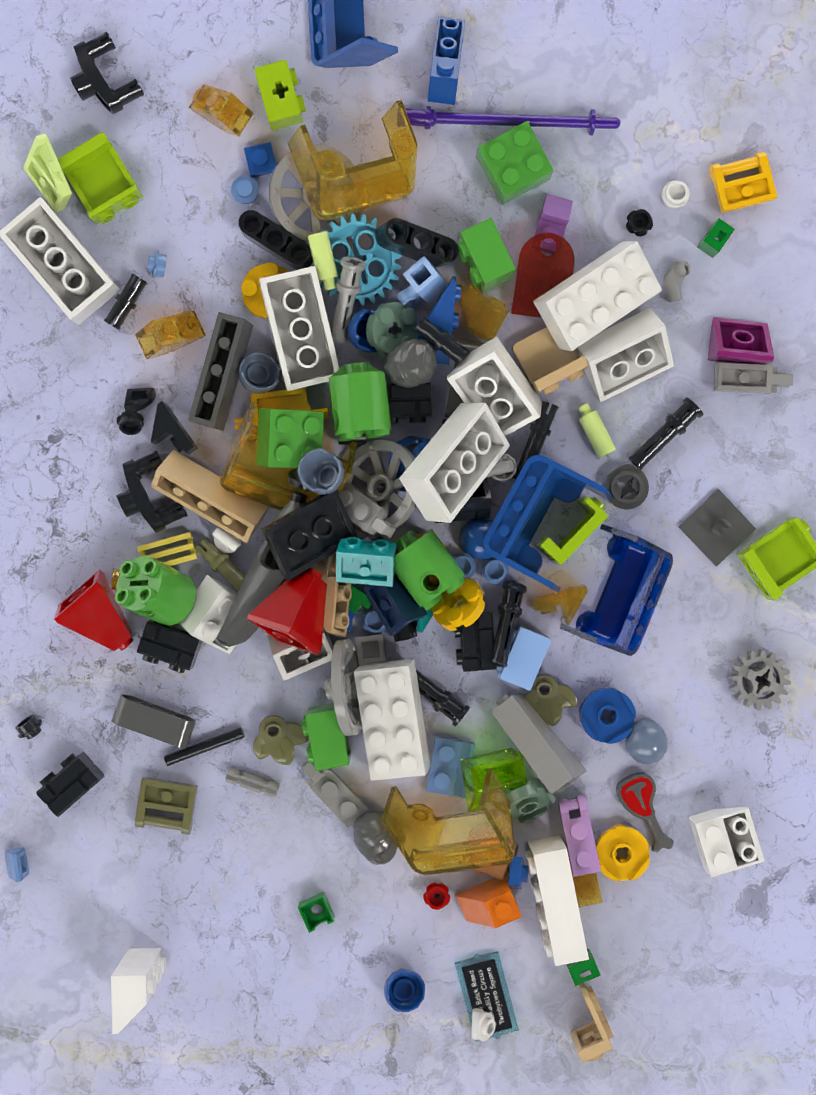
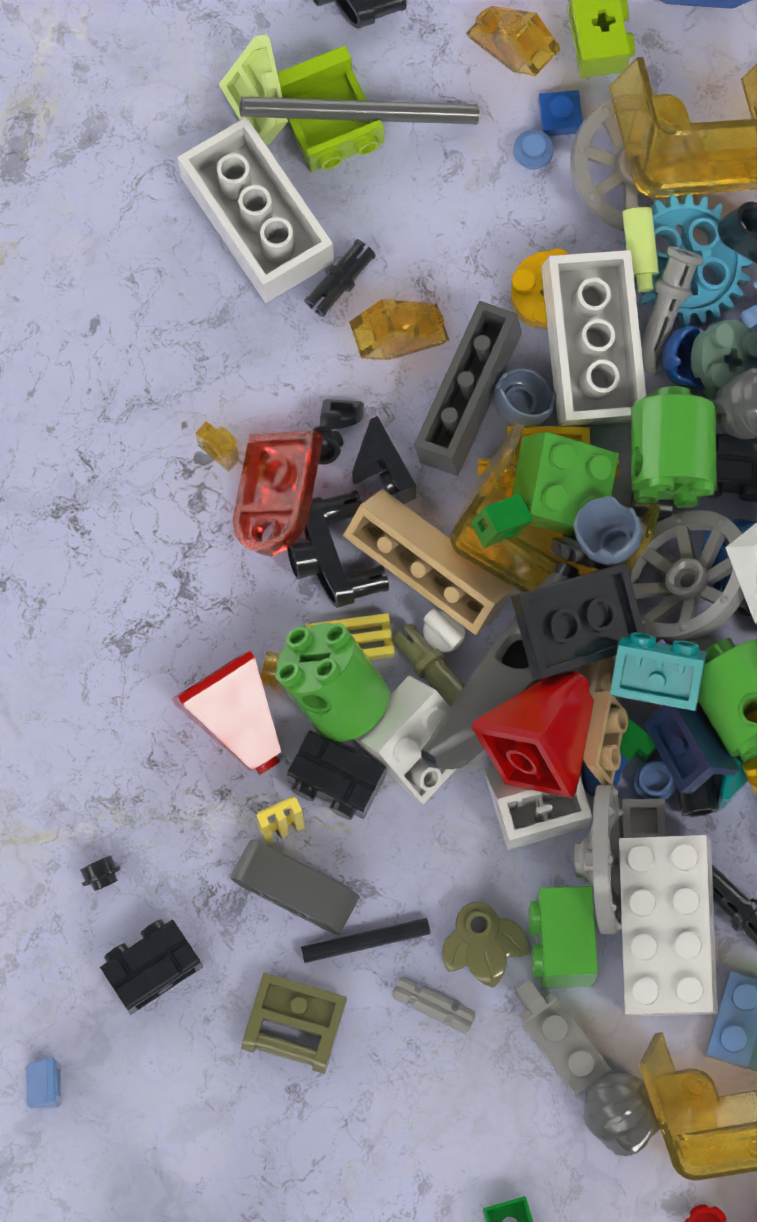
camera: 10 degrees right, 15 degrees down
(61, 431) = (218, 444): none -> clear yellow plate
(102, 460) = (276, 489): none -> clear red plate
(119, 179) = (359, 110): none -> dark grey piece
(136, 684) = (282, 821): none -> light yellow tile
(157, 264) = (393, 233): medium blue plate -> none
(250, 472) = (504, 520): none -> green piece
(268, 229) = (565, 203): black beam -> none
(365, 511) = (665, 605): light grey hinge -> none

